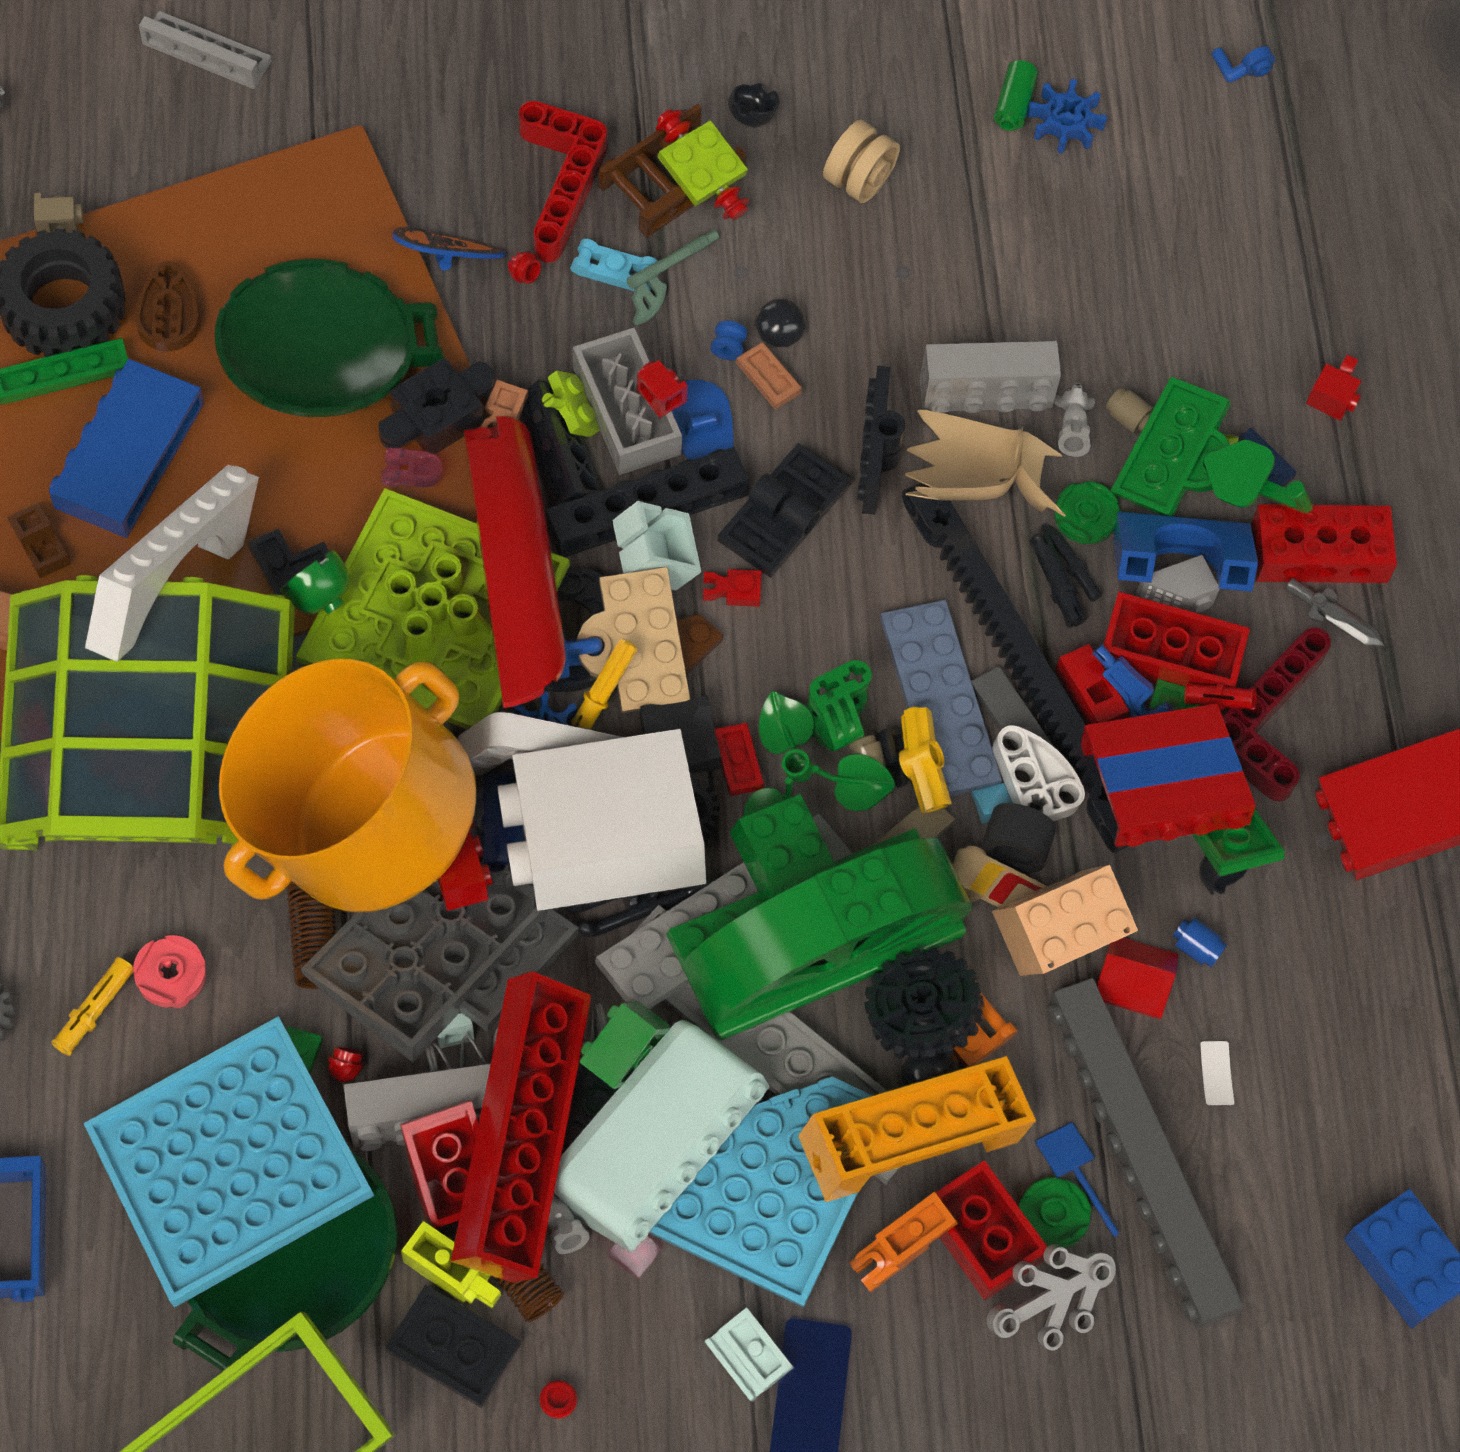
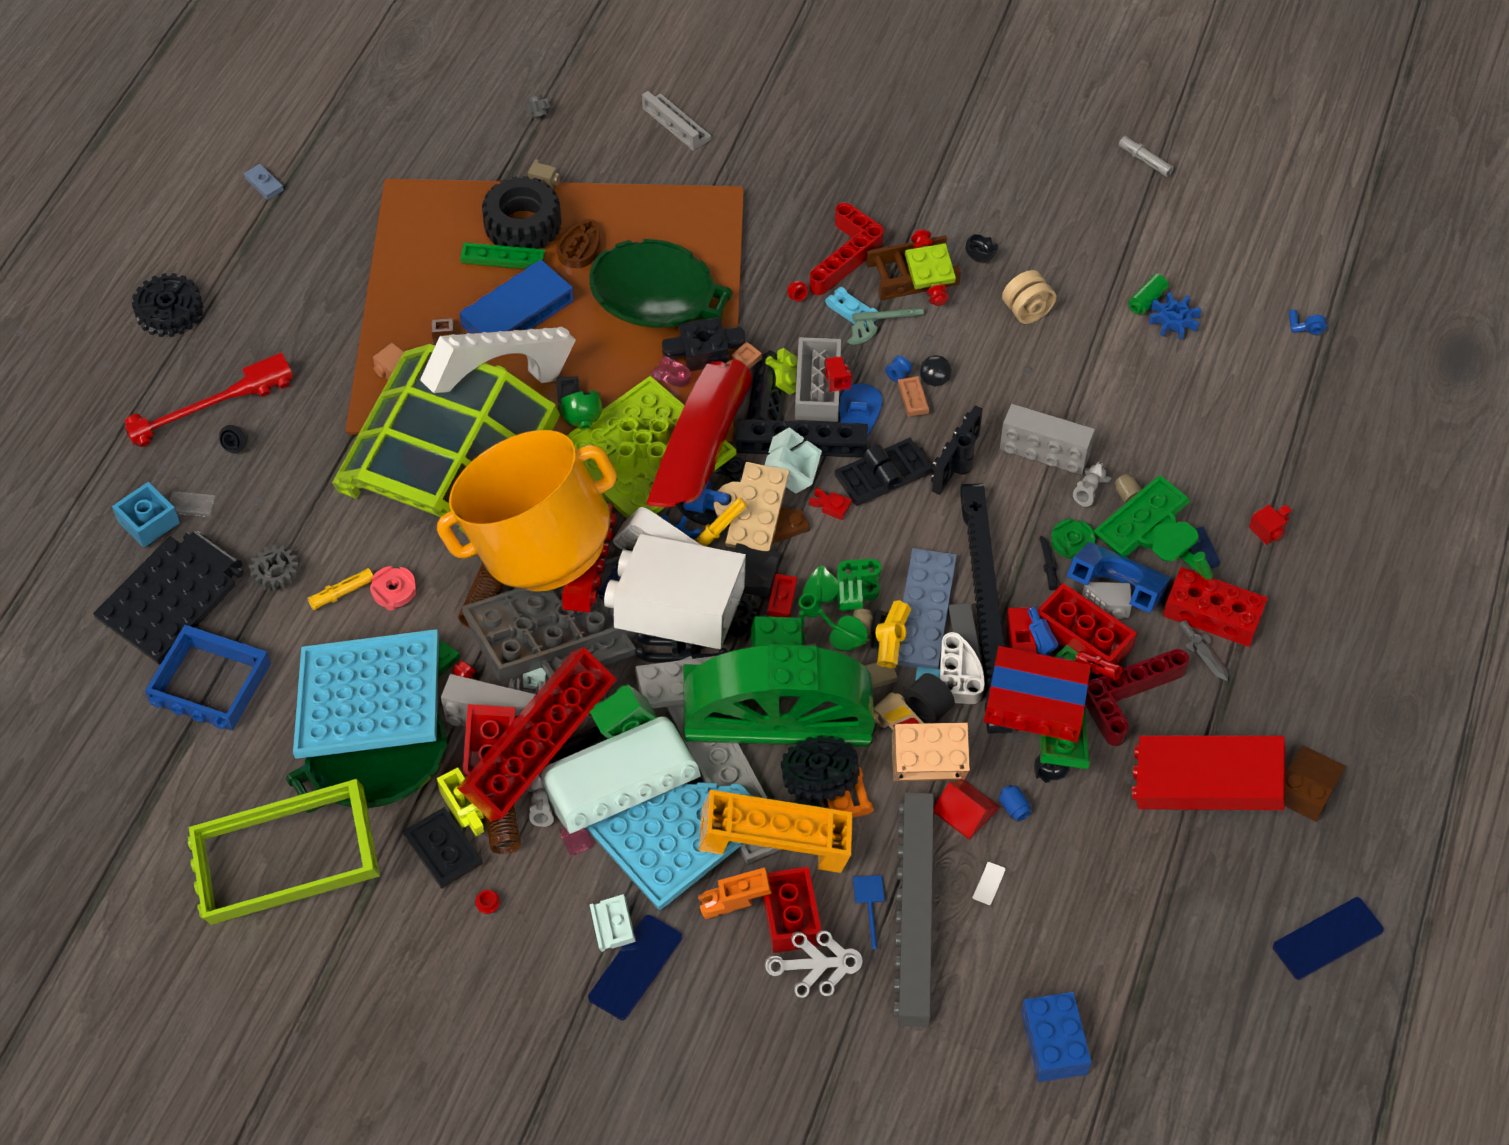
camera: 30 degrees right, 10 degrees down
(445, 245) = (756, 263): shield -> none
(976, 457) = (1018, 482): tan piece -> none
(1057, 1211) = (843, 921): green tile -> none
(1062, 590) = (1033, 576): black pin -> none

